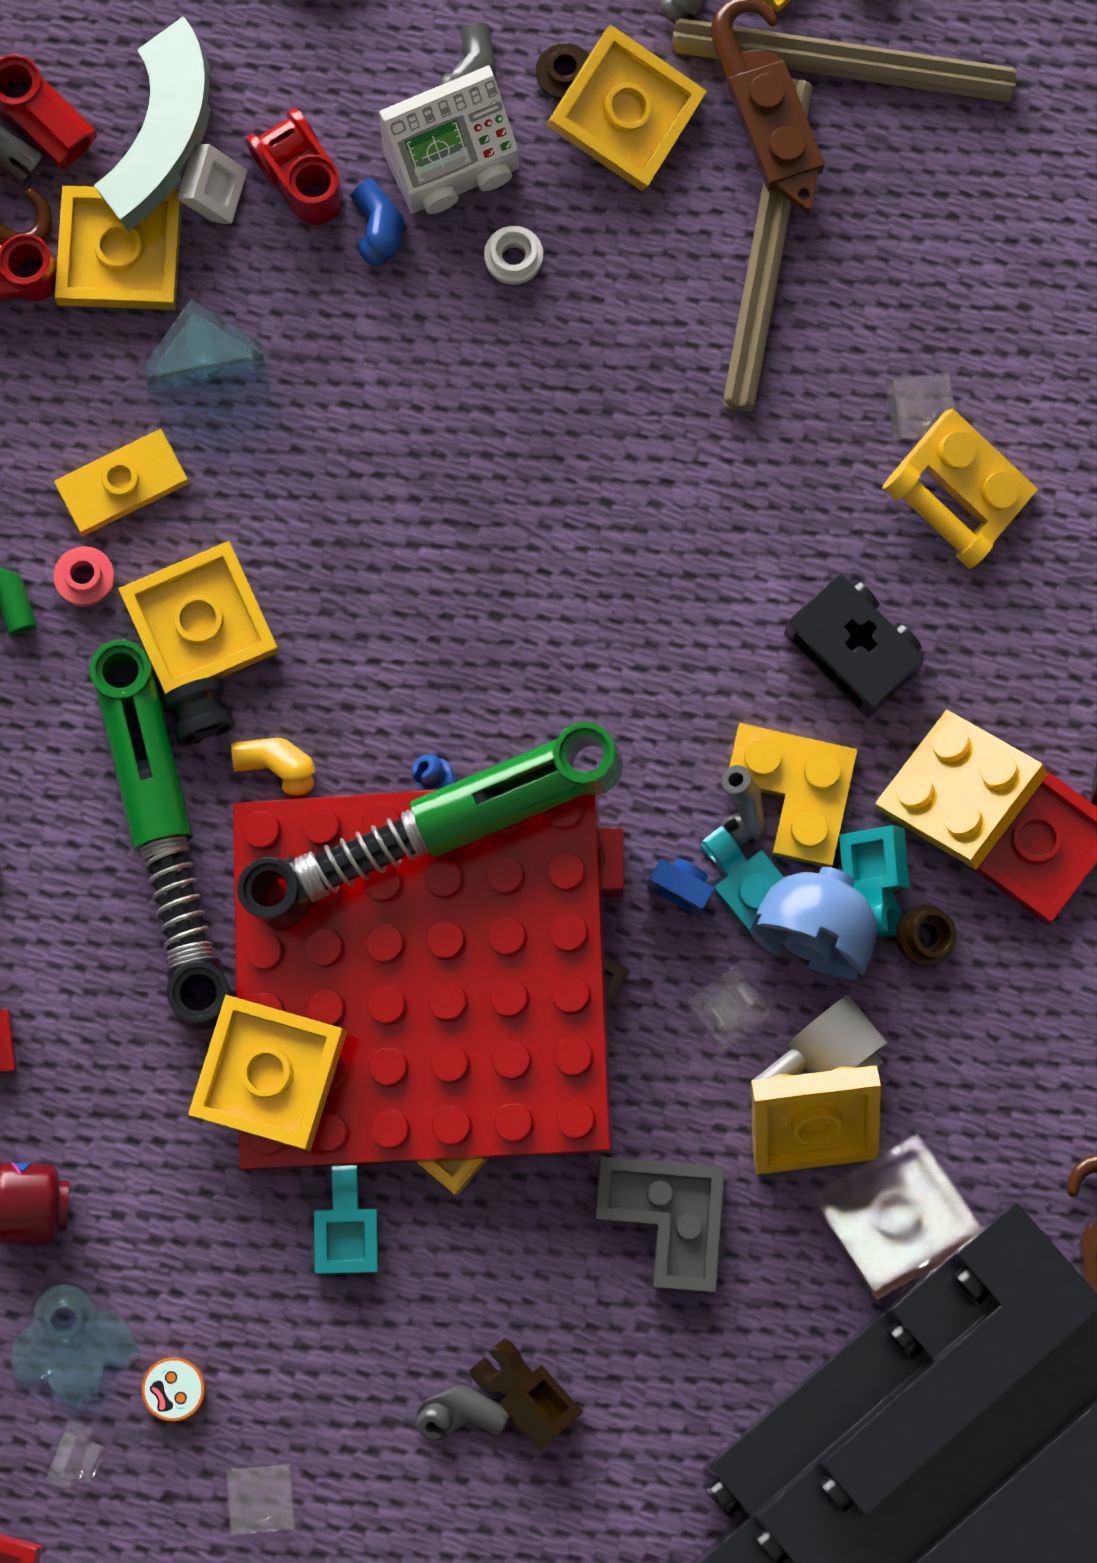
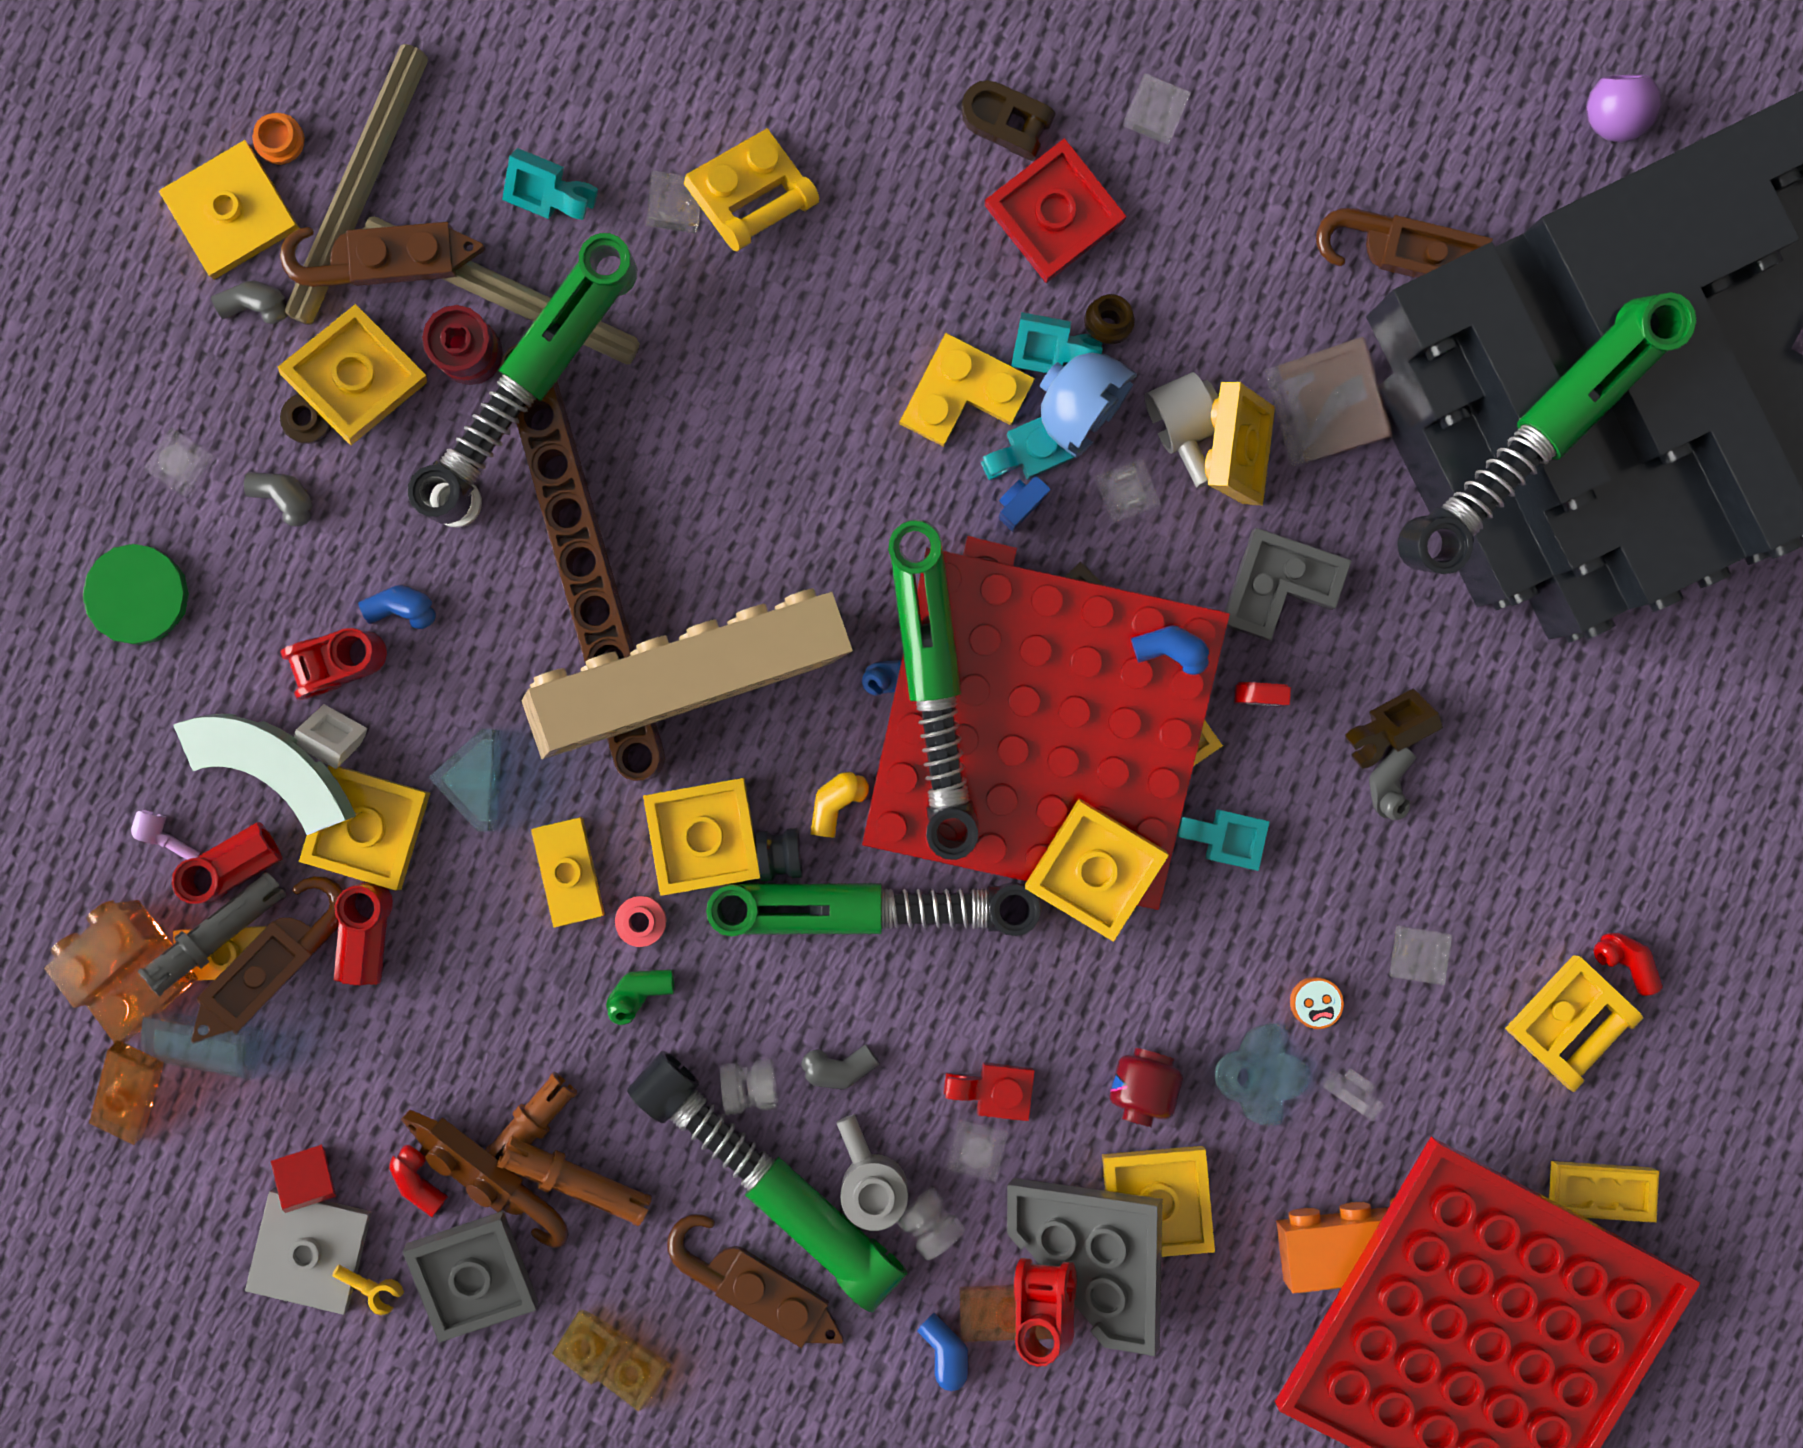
camera: 70 degrees left, 10 degrees up
(59, 20) = (149, 829): none -> lavender hand
(377, 543) = (684, 675): none -> tan brick
(449, 142) = (346, 528): white slope -> none
(492, 385) = (567, 544): none -> reddish brown beam
(527, 1224) = (1262, 694): none -> red tile
(554, 1088) = (1175, 643): none -> blue arm
(672, 290) = (528, 373): none -> piece
(689, 230) = (462, 345): none -> dark red wheel
(747, 798) = (966, 430): dark grey arm -> none
(862, 675) = (846, 332): black brick -> none
(894, 256) = (539, 187): none -> teal plate
(903, 1418) = (1552, 426): none -> piece
(961, 789) = (1001, 257): yellow plate -> none

